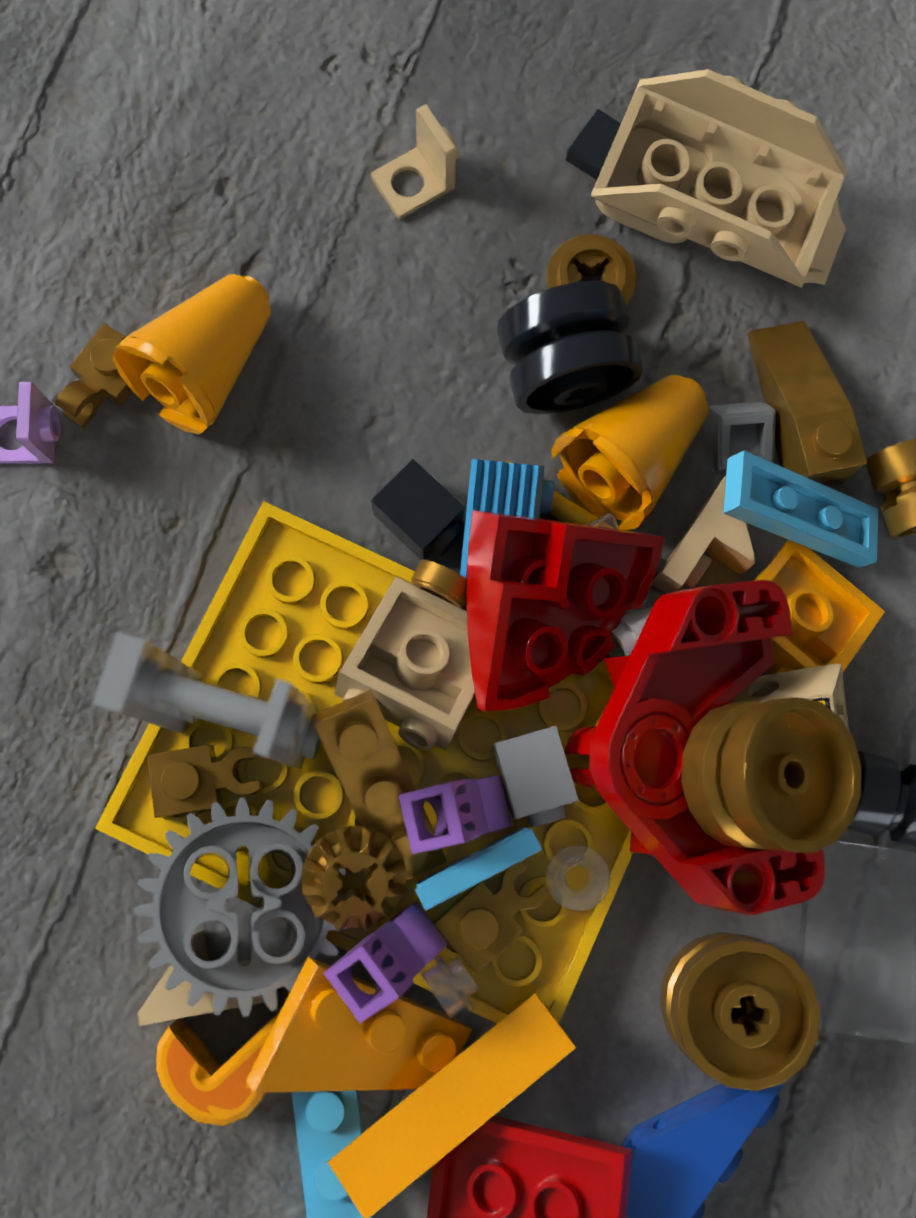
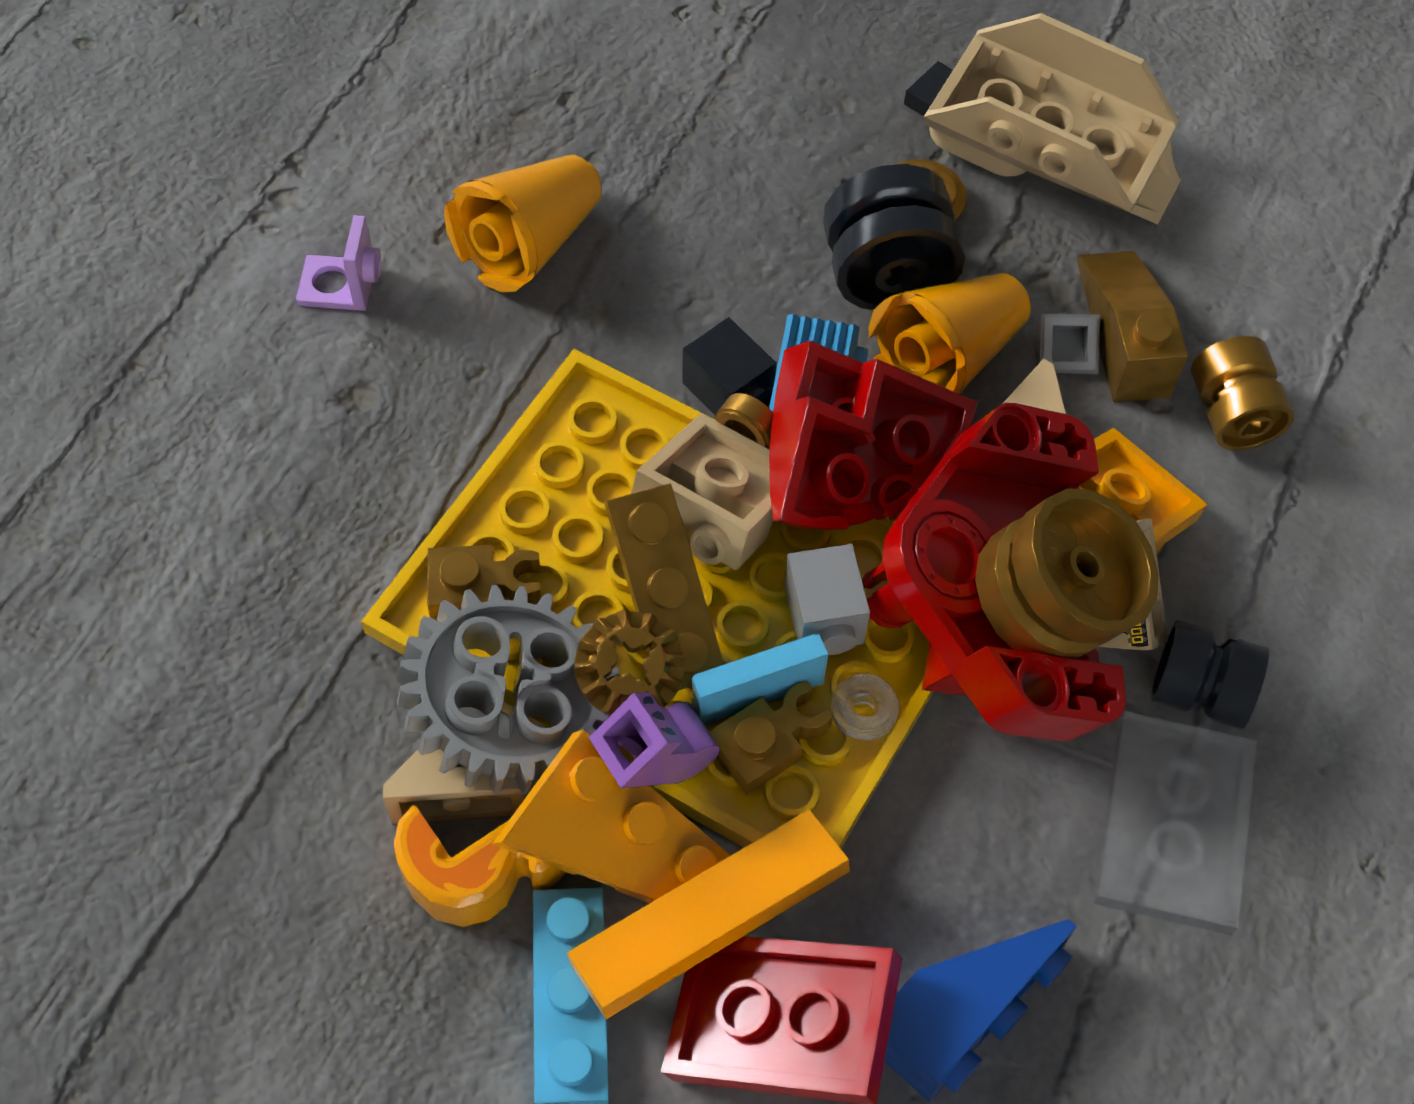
camera: 10 degrees right, 20 degrees down
(96, 377) = (418, 239): pearl gold plate -> none
(168, 694) = (466, 479): light grey fence -> none
(431, 159) = (772, 91): tan bracket -> none
(450, 985) = (718, 793): clear plate -> none
(462, 812) = (747, 613): medium lavender leg -> none
(770, 1032) = (1030, 852): pearl gold wheel -> none
(800, 510) = (1121, 397): medium azure plate -> none

